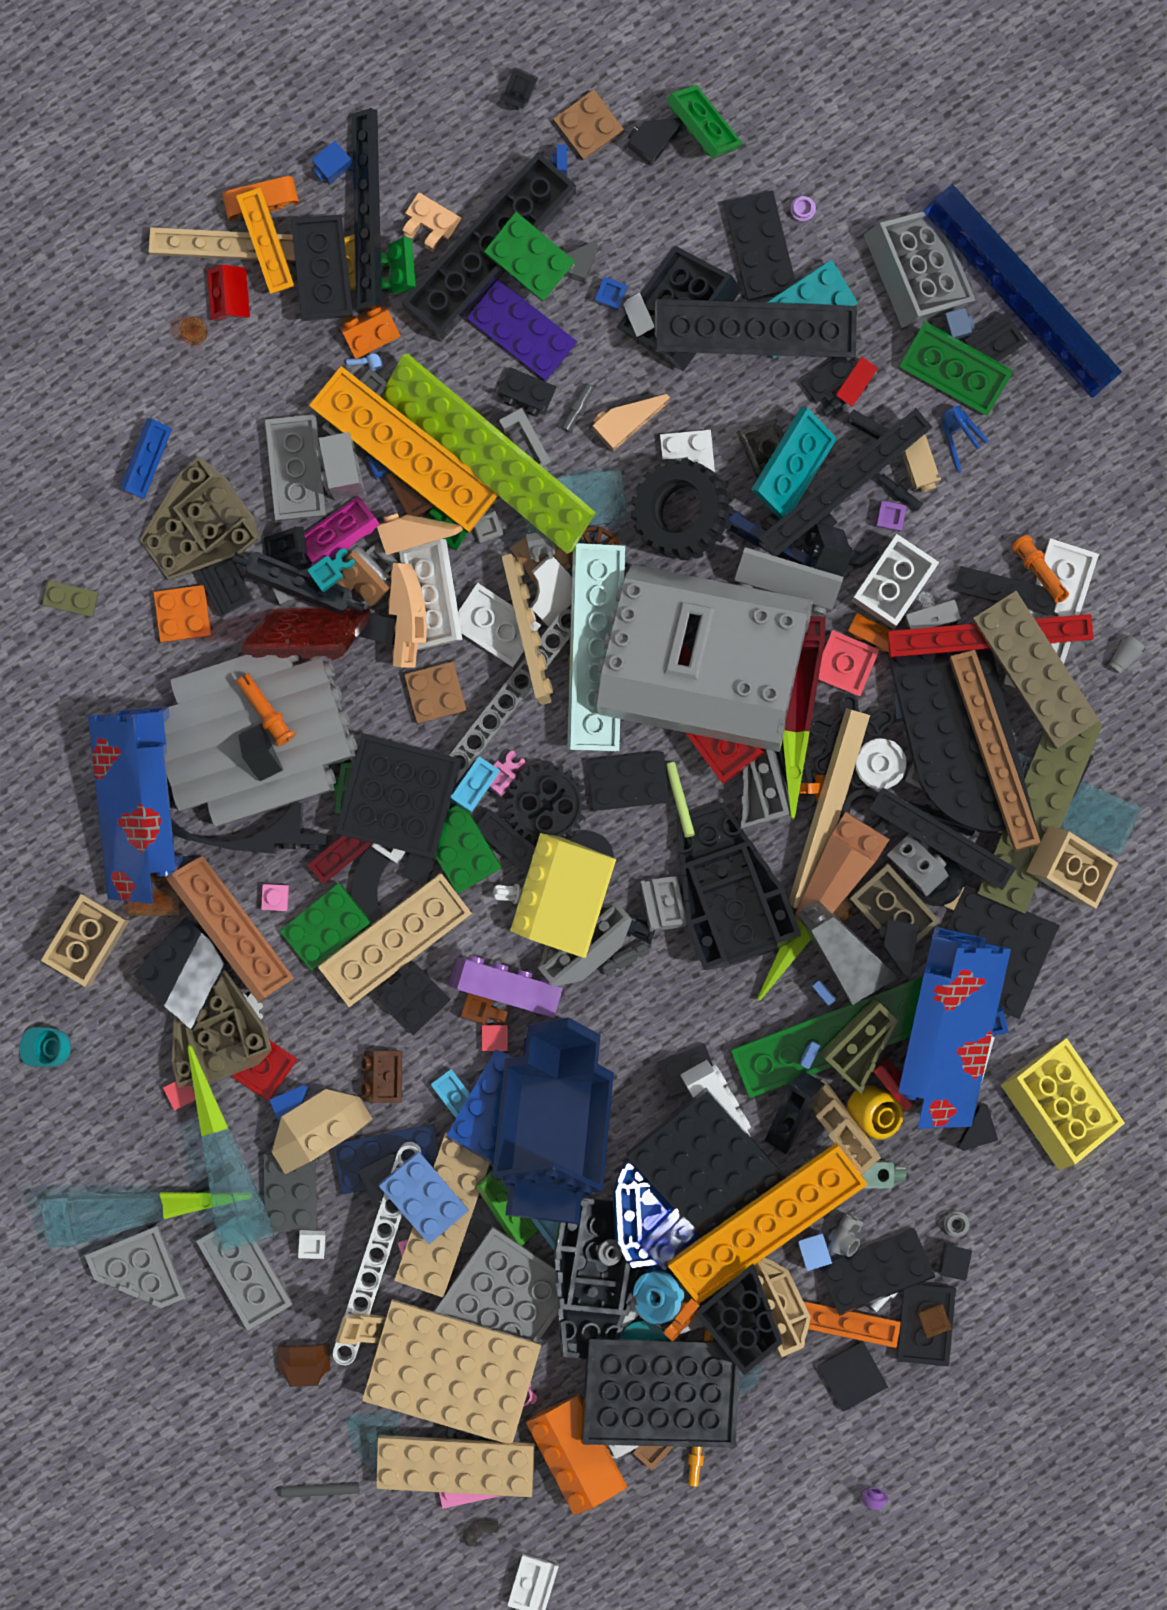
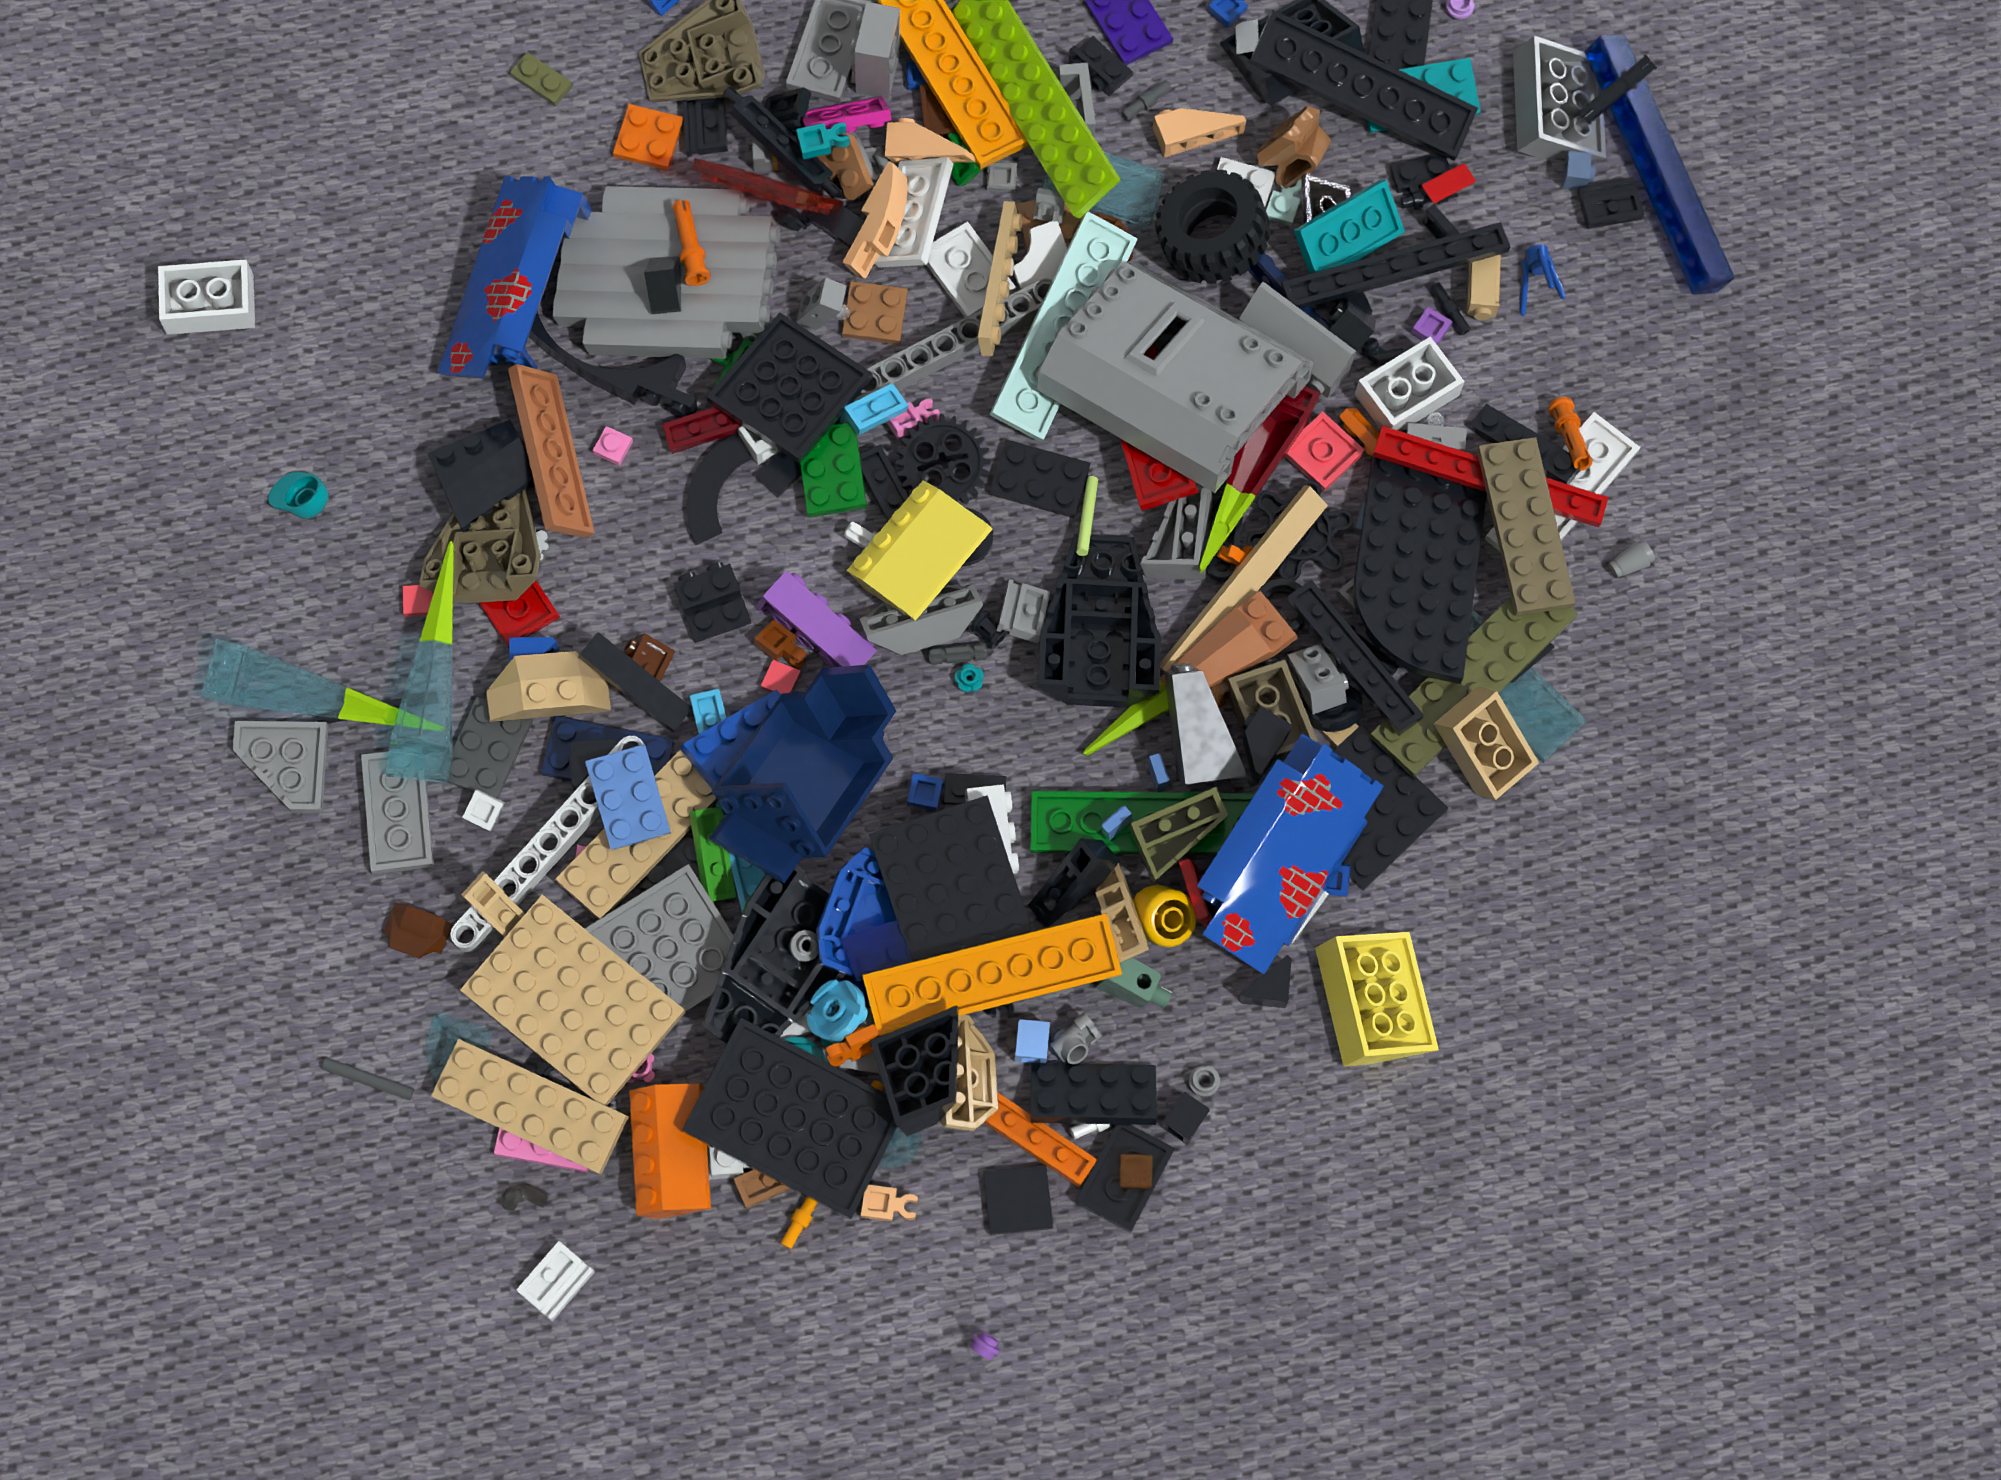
camera: 20 degrees right, 15 degrees down
(85, 940) = (394, 403): tan brick -> none
(165, 902) = (485, 400): clear orange plate -> none
(325, 926) = (652, 494): green plate -> none
(384, 1095) = (635, 682): none -> black tile
(393, 710) = (823, 304): none -> light grey piece
(394, 939) = (719, 533): tan plate -> none
(642, 968) = (969, 685): none -> teal plate
(647, 1084) = (925, 792): none -> blue plate
(719, 404) = (1295, 146): none -> medium nougat piece
(728, 455) = (1284, 205): none -> light aqua plate
(751, 1422) = (881, 1204): none -> light nougat plate
(880, 763) = (1327, 565): white tile -> none
(956, 368) = (1559, 209): green plate -> none
(972, 235) = (1616, 90): none -> black pin
(994, 750) = (1448, 586): medium nougat plate -> none

